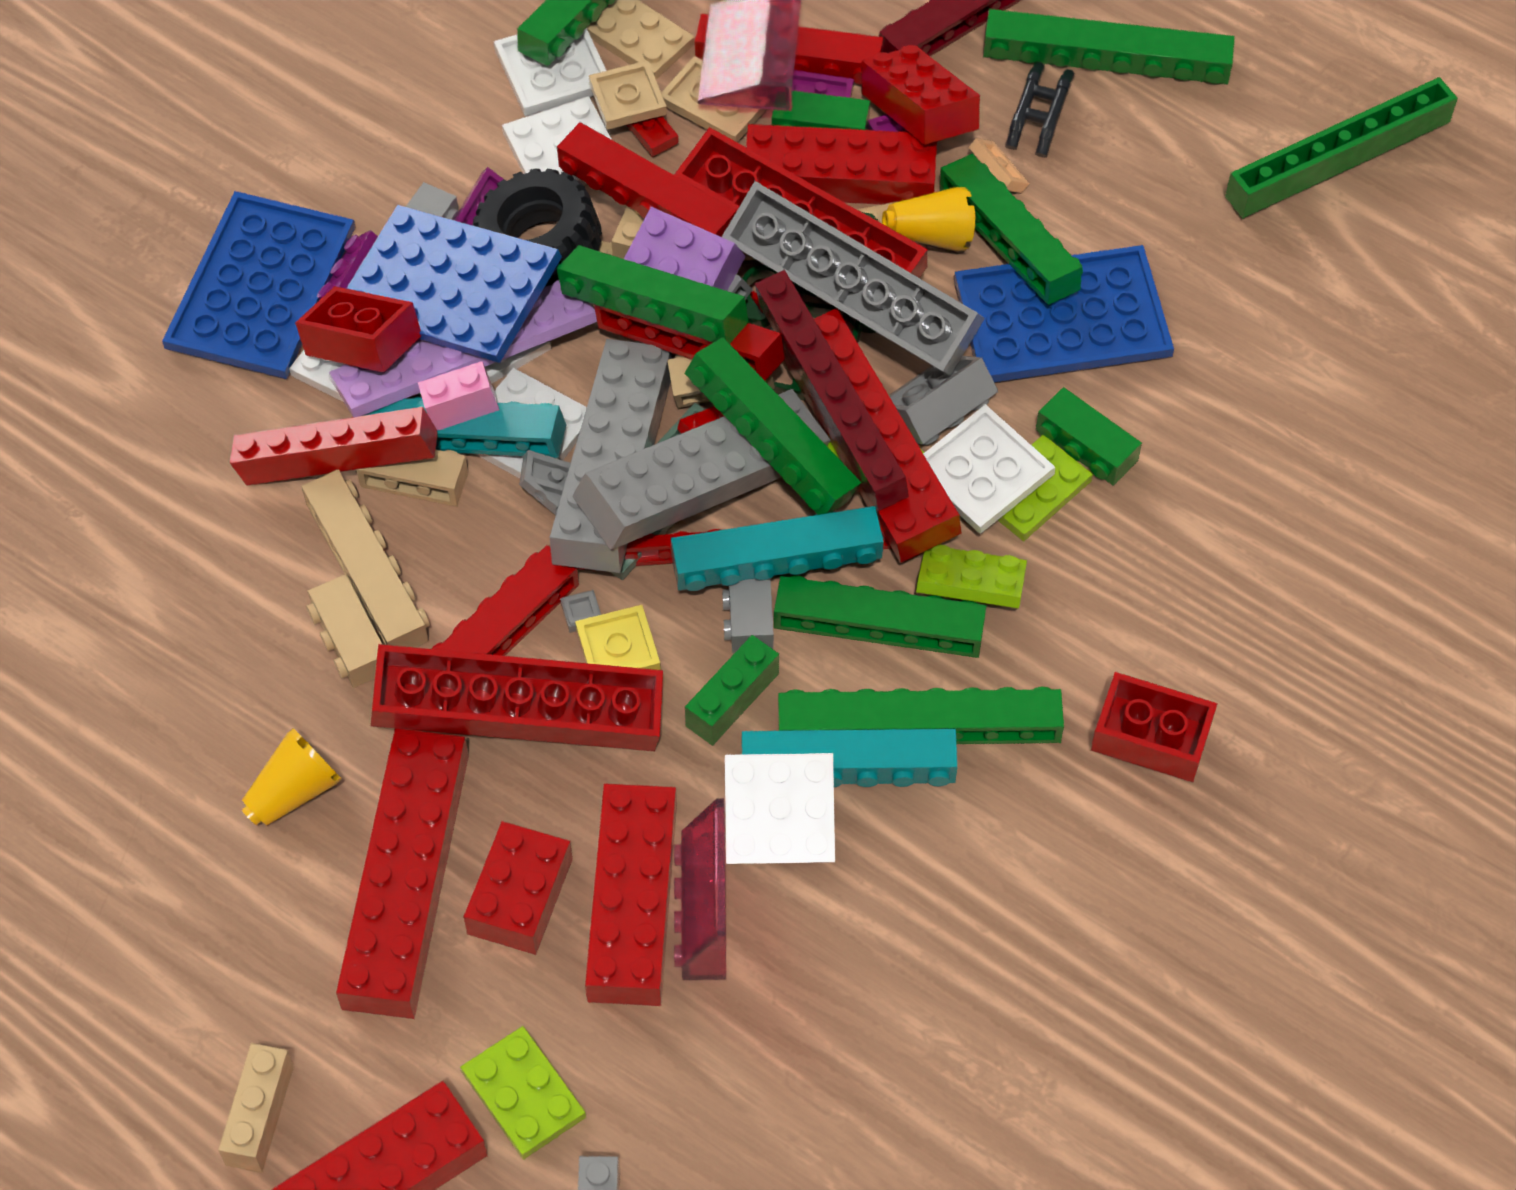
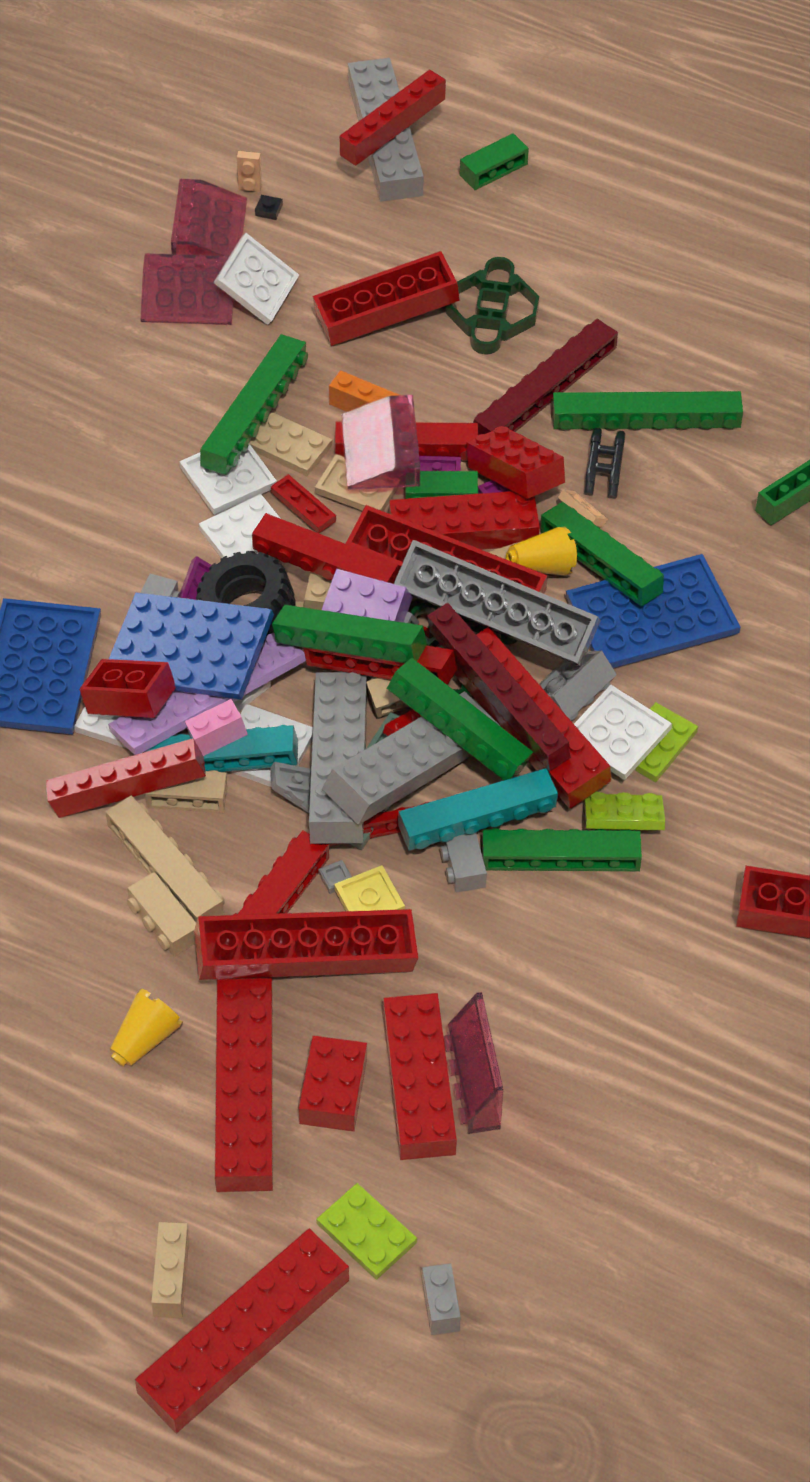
camera: 10 degrees left, 5 degrees down
(345, 269) = (105, 642): magenta plate -> none
(627, 94) = (292, 489): tan plate -> none
(732, 690) = (462, 918): green brick -> none
(779, 808) = (519, 997): white plate -> none
(869, 755) = (559, 955): teal brick -> none
(976, 714) = (606, 919): green brick -> none
(1088, 436) = (690, 699): green brick -> none

